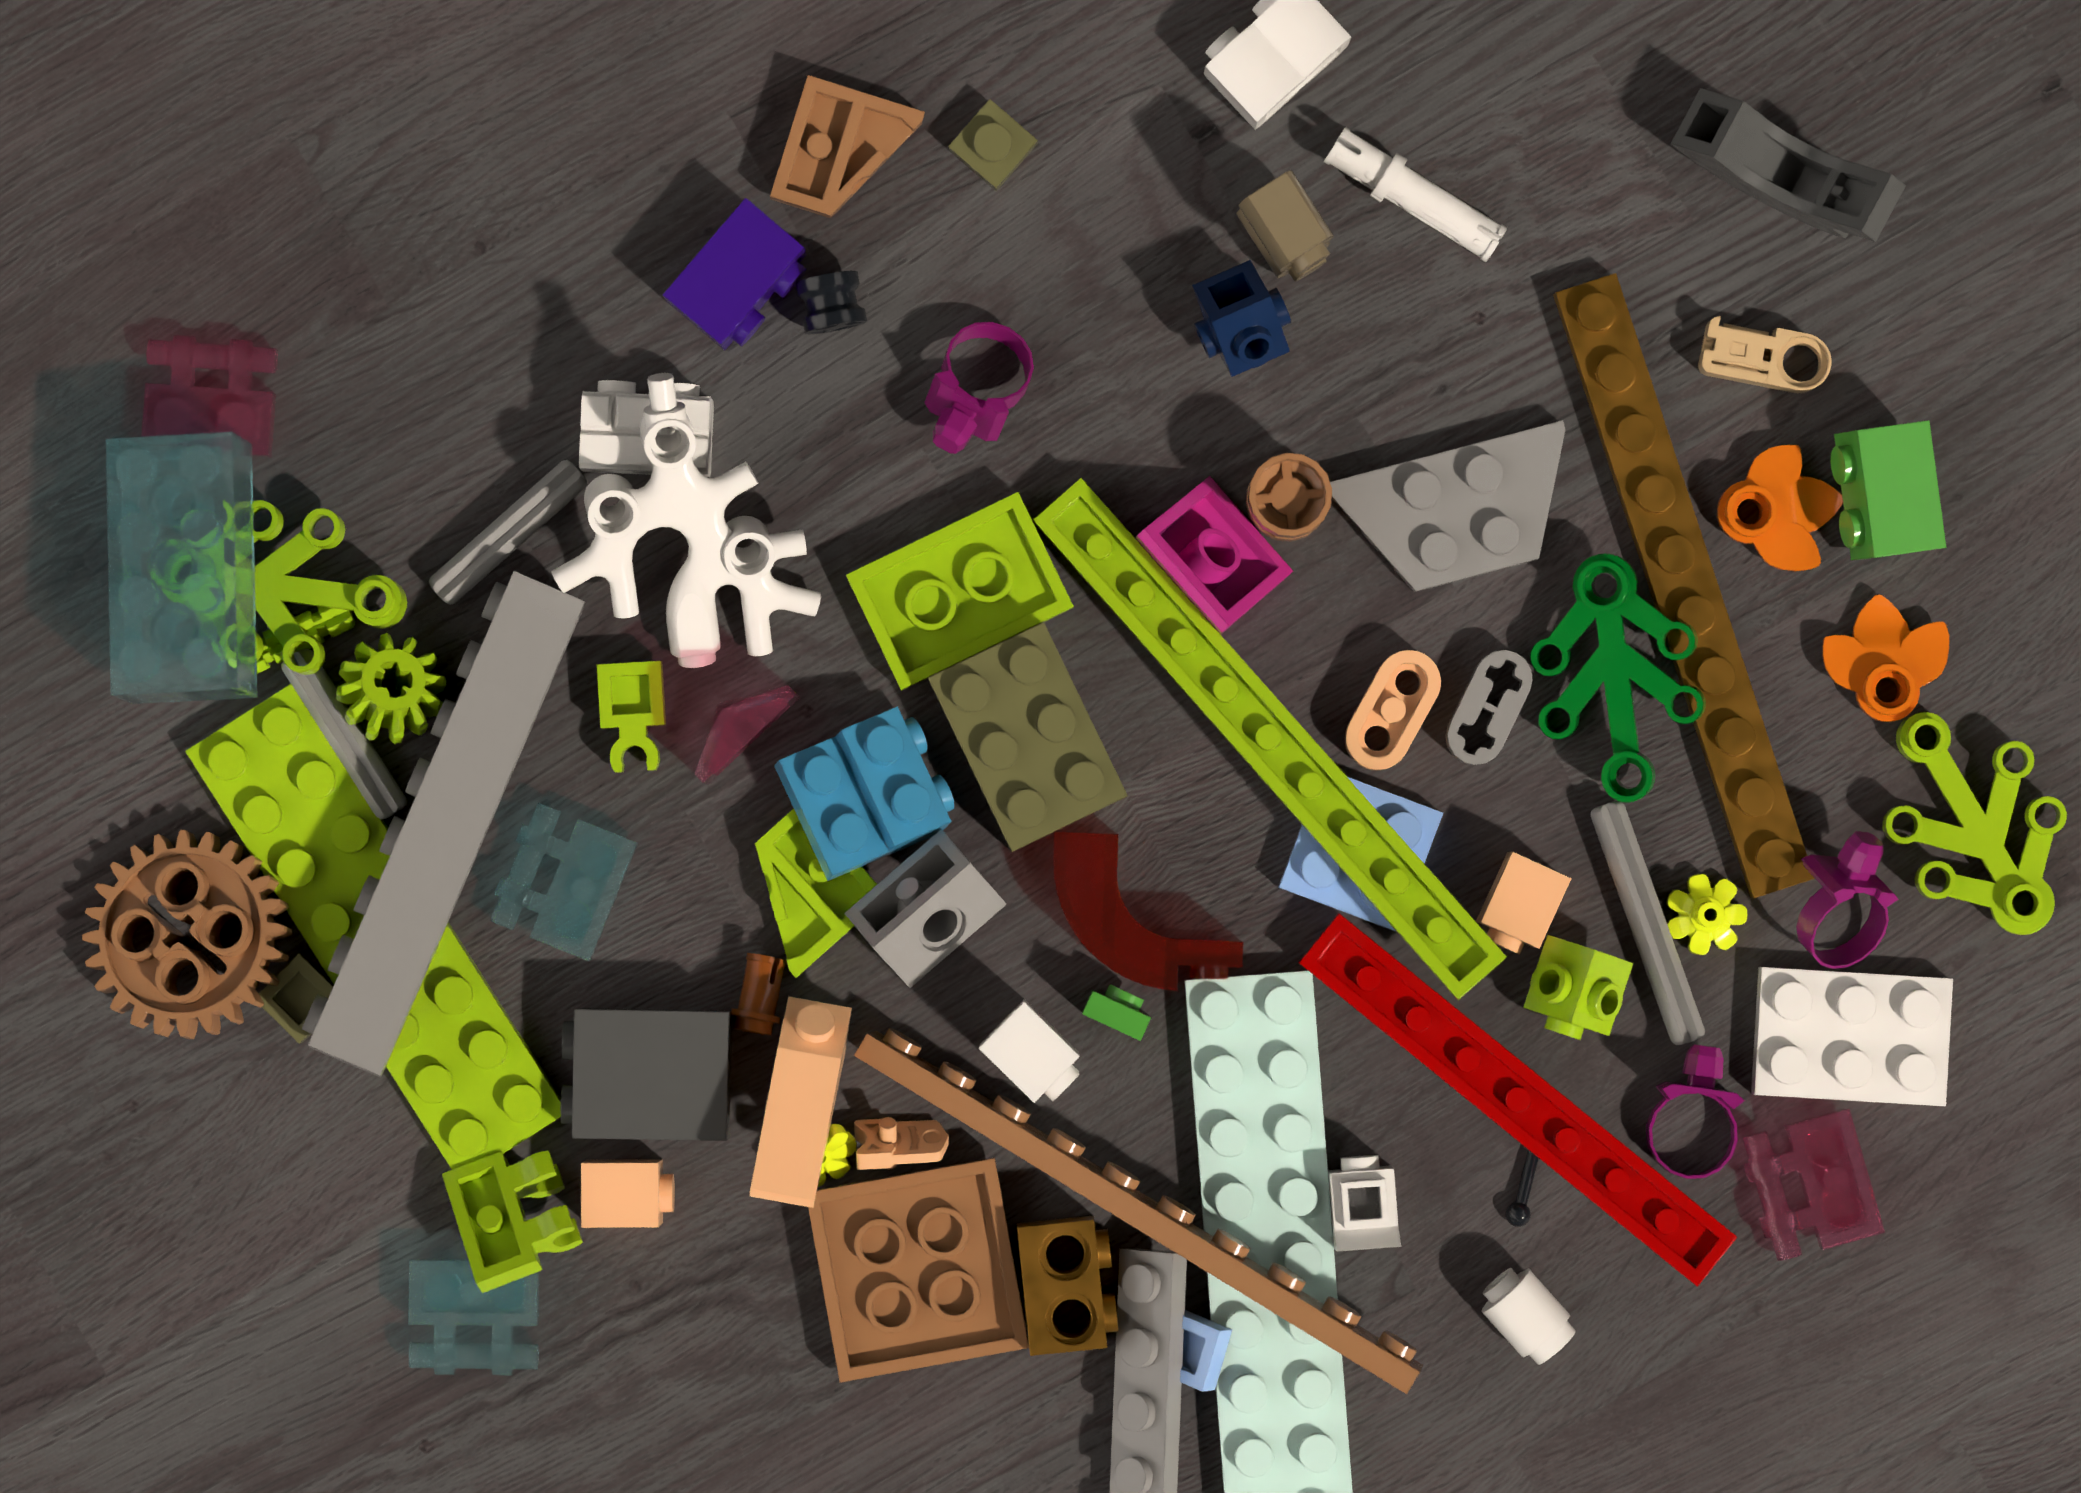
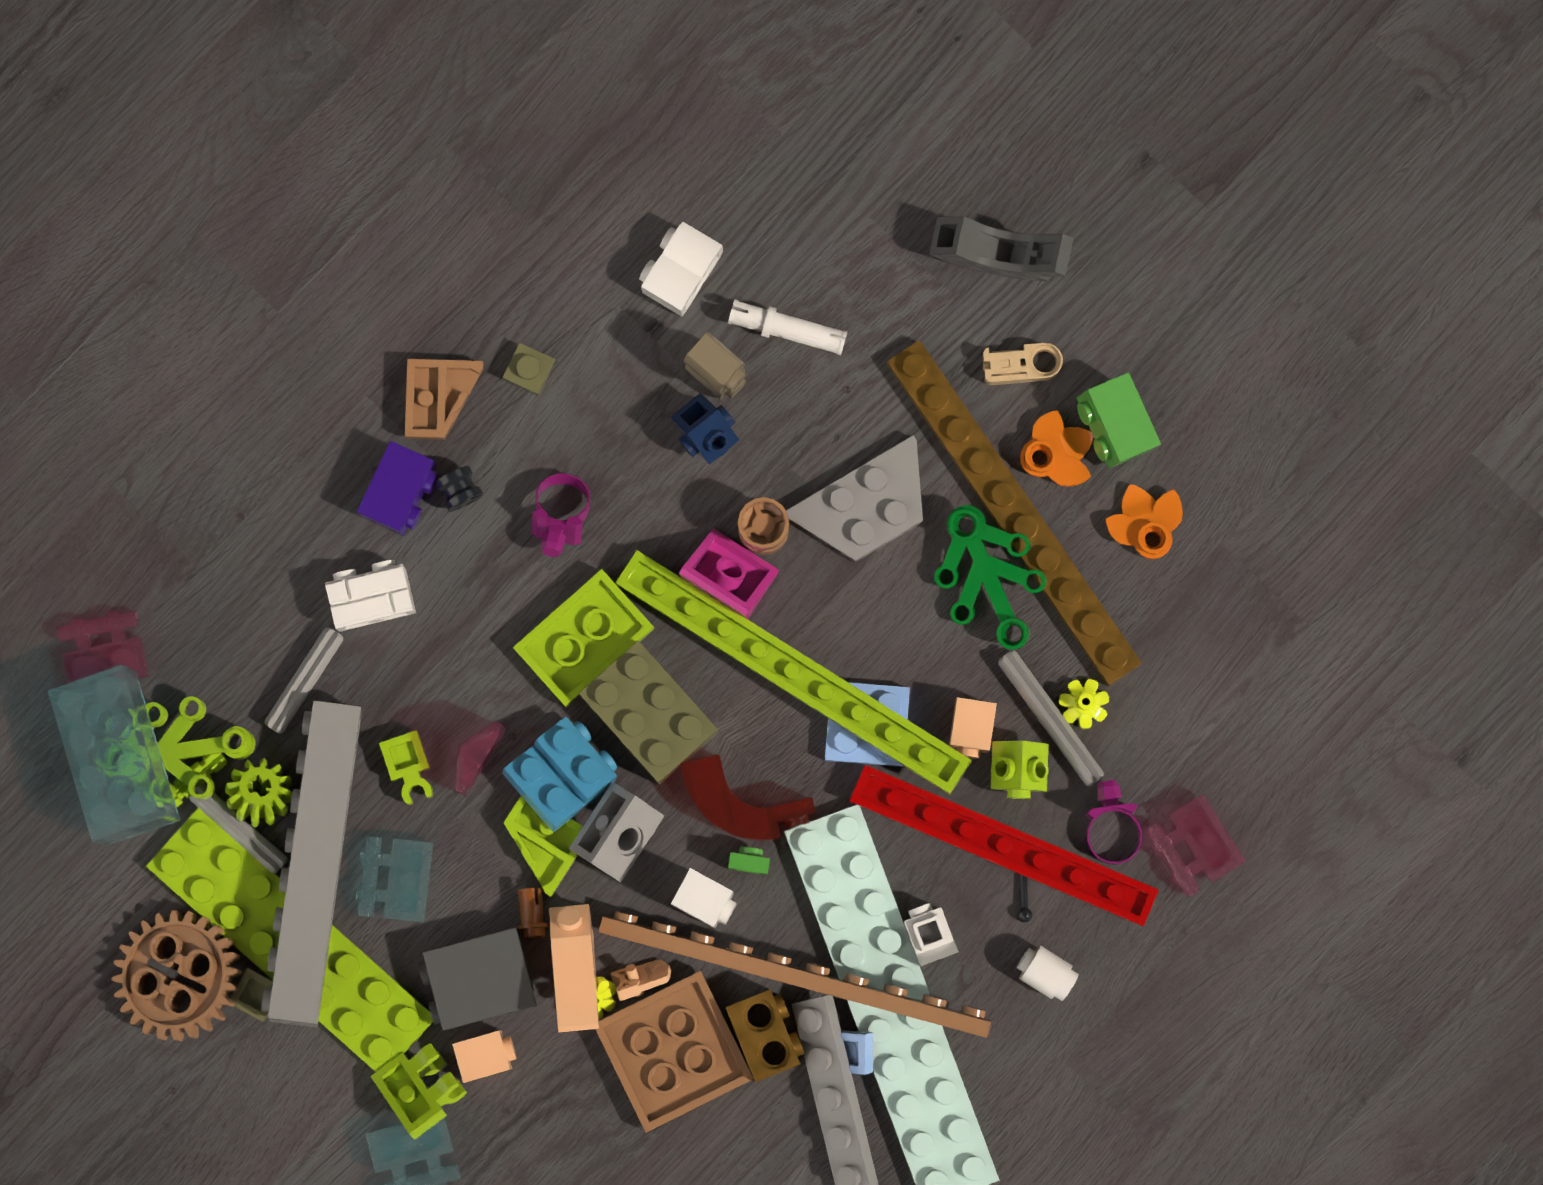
camera: 15 degrees left, 5 degrees down
(695, 506) = (411, 631): white plant -> none
(1393, 711) = (862, 635): light nougat plate -> none
(1503, 714) = (909, 616): light grey beam -> none
(1841, 878) = (1156, 658): magenta piece -> none
(1852, 1036) = (1192, 751): white plate -> none
(1980, 833) = (1232, 608): lime plant -> none

